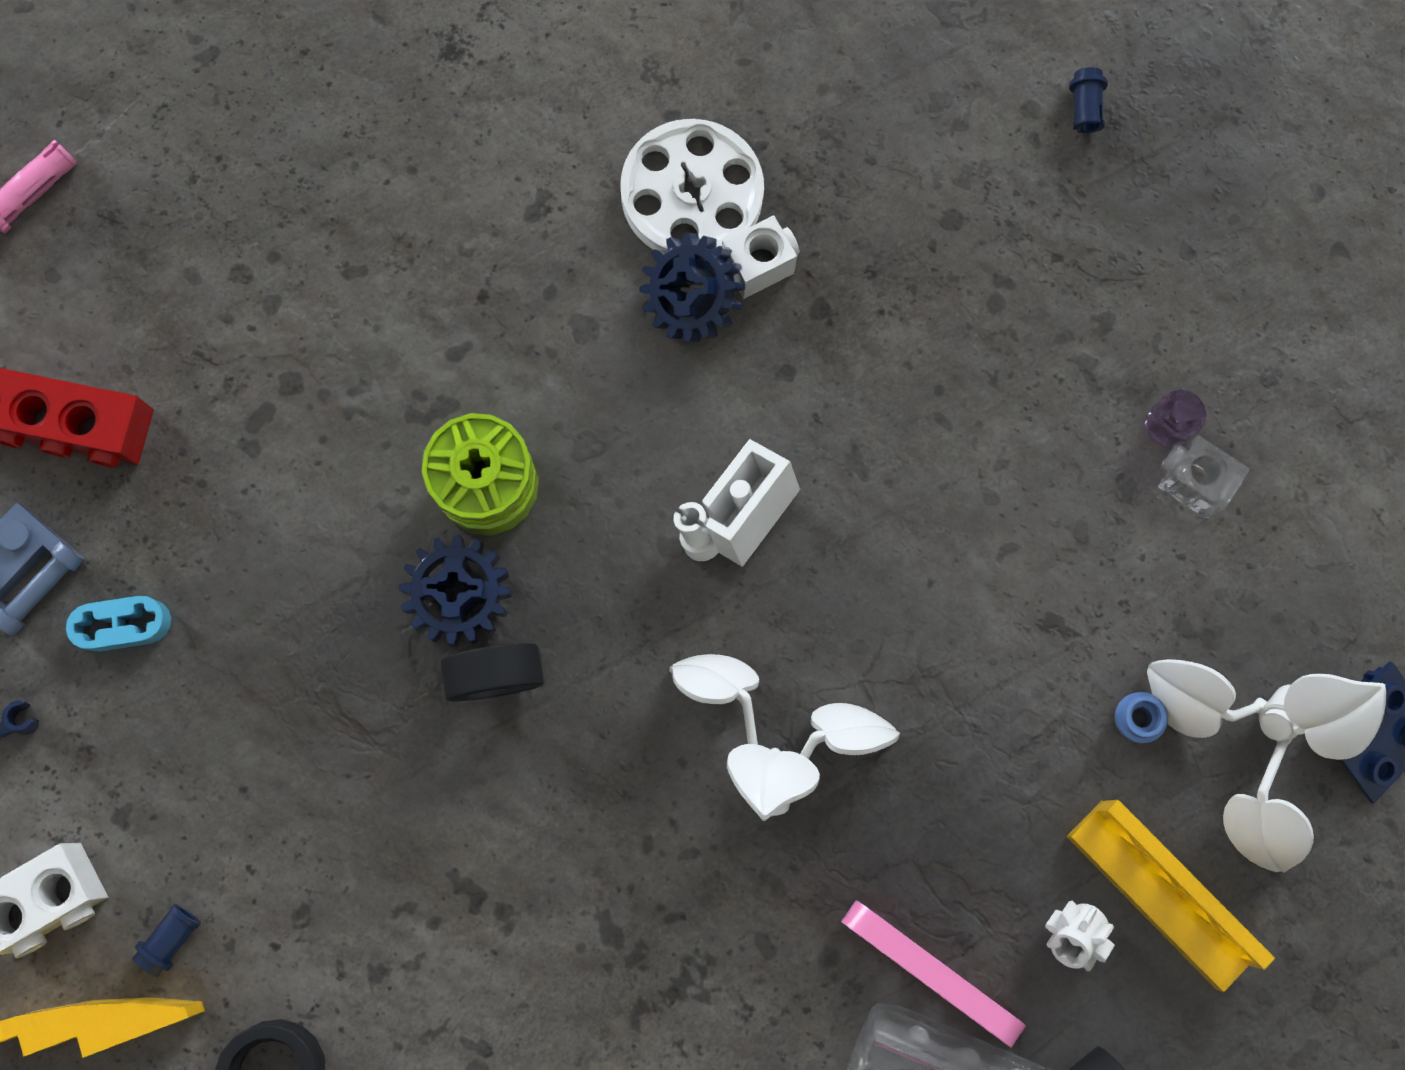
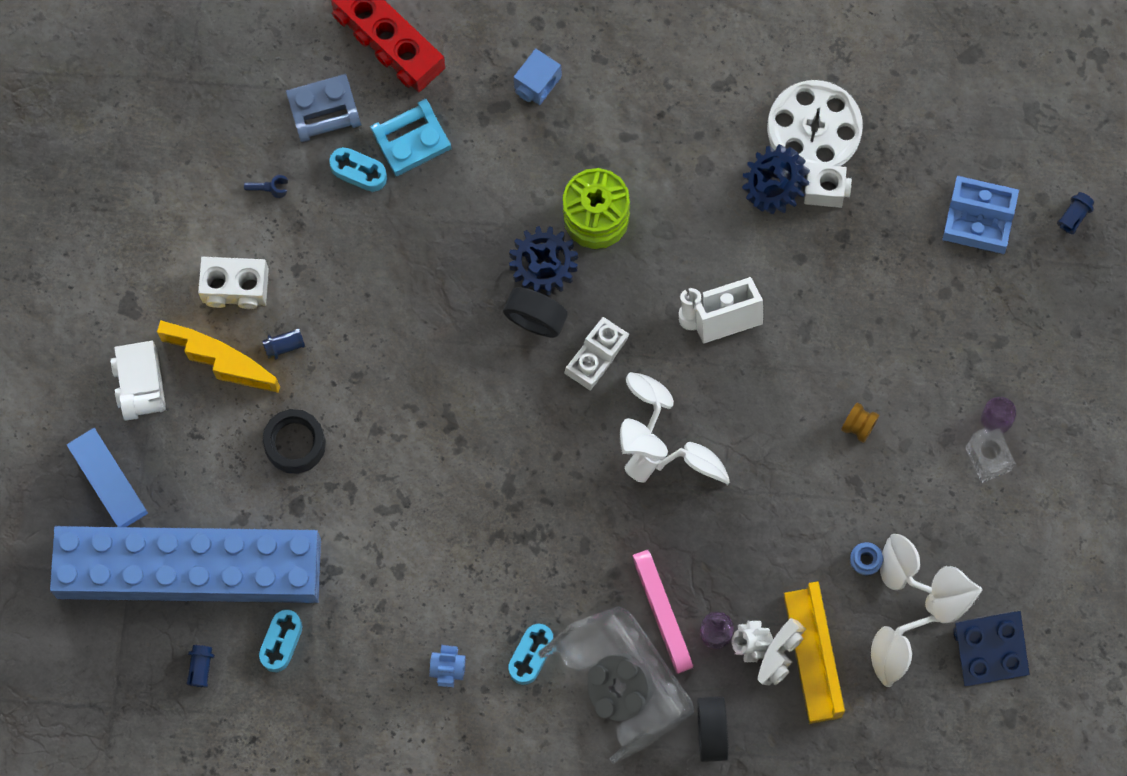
camera: 40 degrees right, 5 degrees down
(177, 543) = (414, 146): none -> medium azure plate
(285, 346) = (537, 77): none -> medium blue brick
(608, 670) = (596, 353): none -> white slope
(974, 175) = (980, 214): none -> medium blue slope
(1009, 947) = (713, 635): none -> clear purple wheel
(1013, 541) = (860, 422): none -> pearl gold wheel
(1131, 940) = (775, 661): none -> white slope

